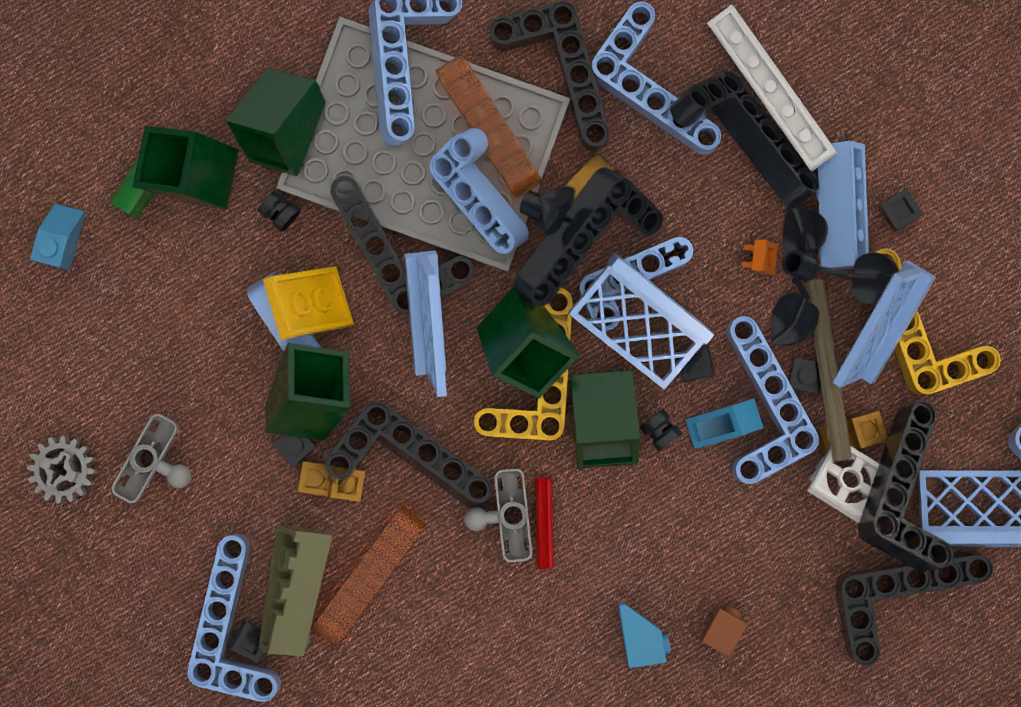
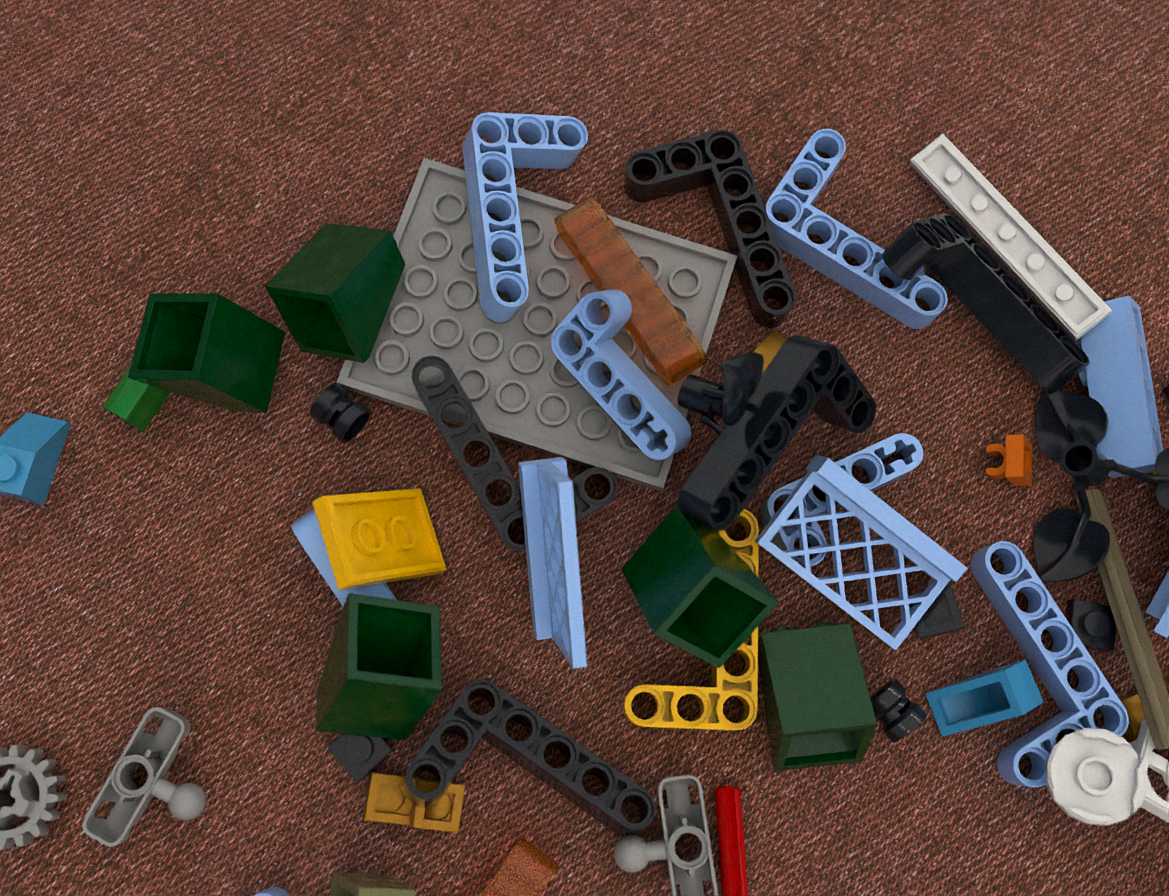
camera: 10 degrees left, 10 degrees down
(788, 477) = (1096, 777): none -> white tile

